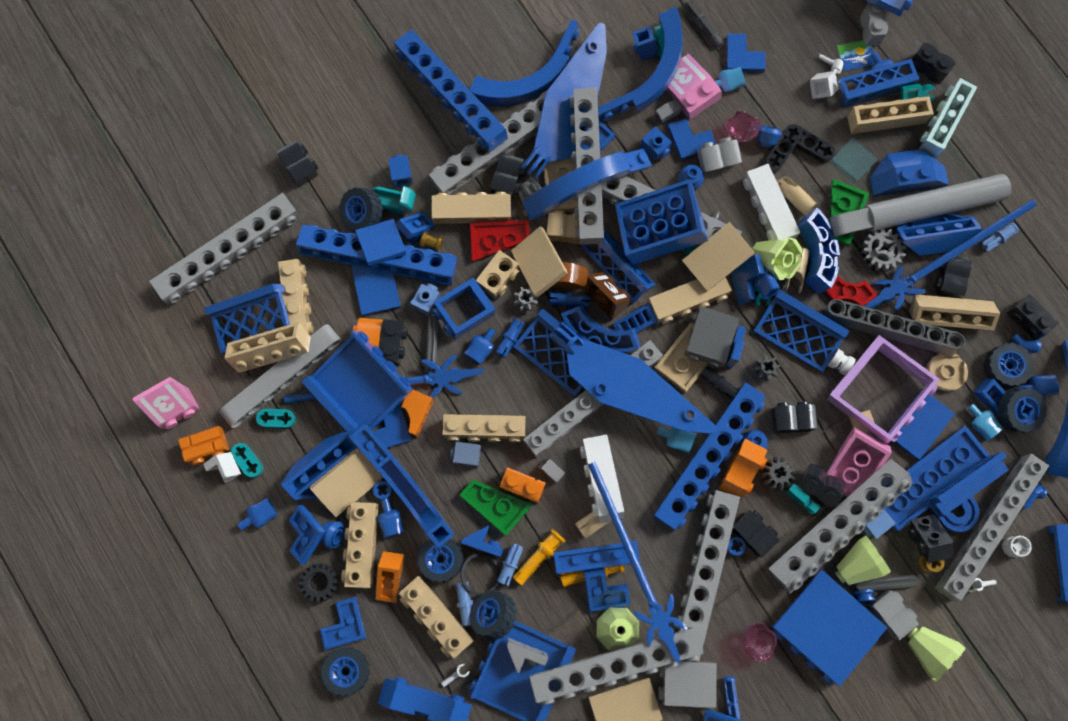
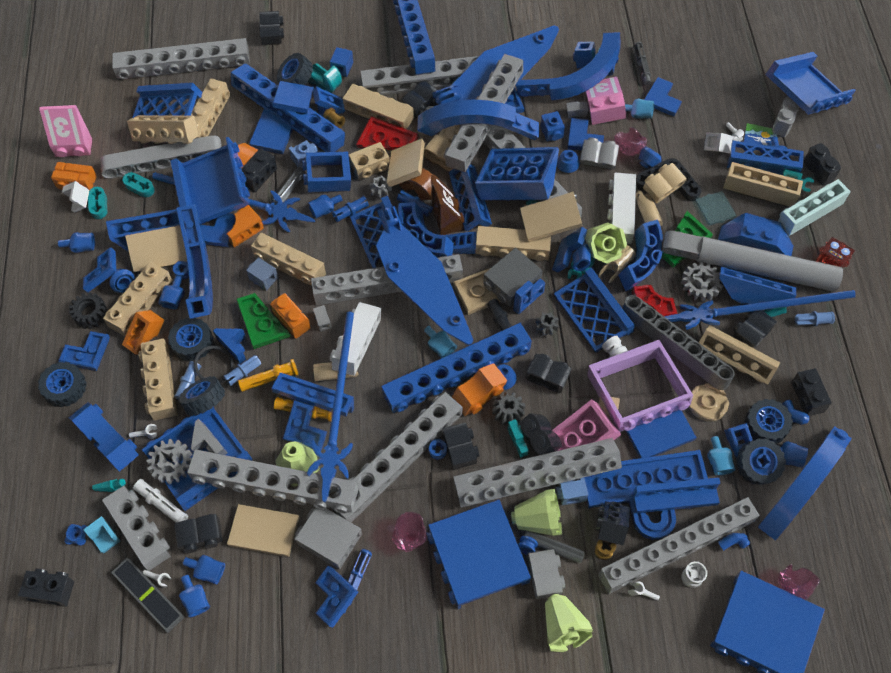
camera: 30 degrees right, 15 degrees down
(500, 709) = (166, 470): none -> light grey gear
(526, 89) = (463, 47): blue arch -> none
(799, 159) = (664, 182): none -> tan brick
(988, 160) = (835, 253): none -> clear red head

